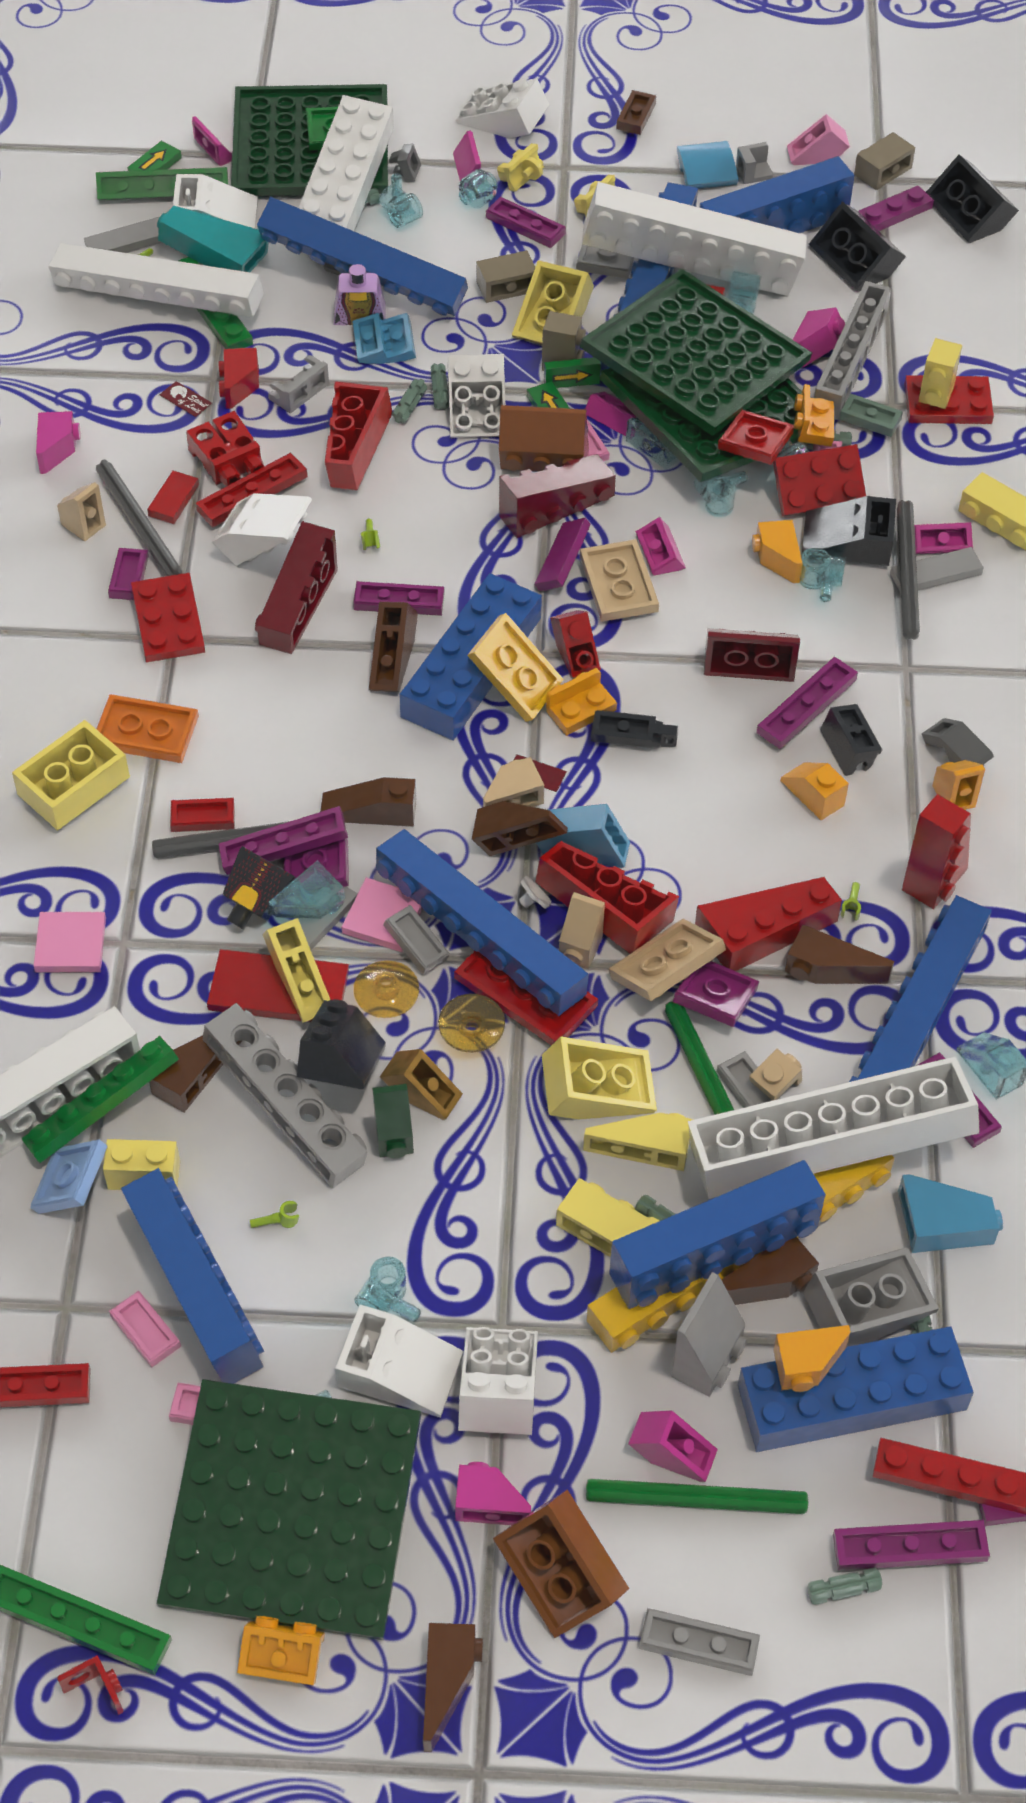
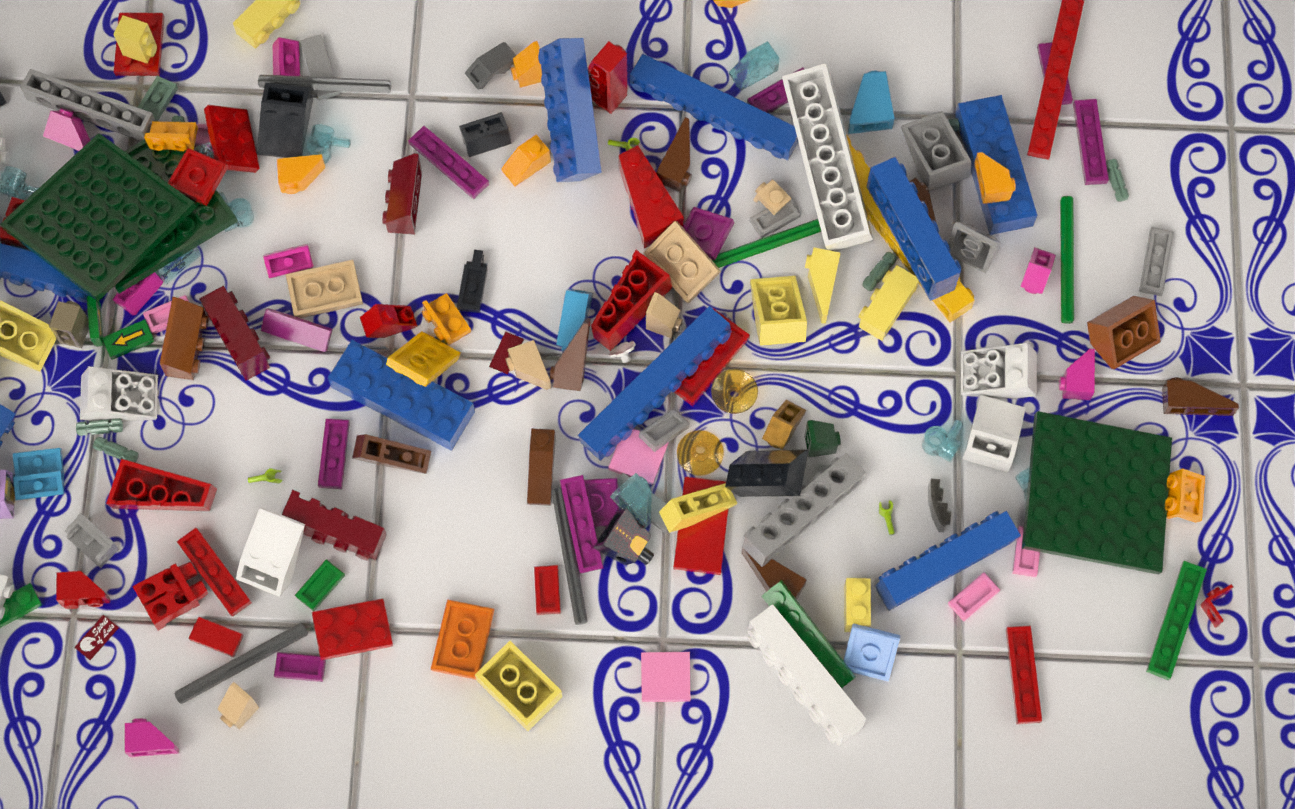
camera: 90 degrees left, 15 degrees up
(229, 589) = (319, 585): none -> green tile
(274, 1279) = (938, 510): none -> clear smoke slope
(876, 806) = (569, 110): none -> blue brick

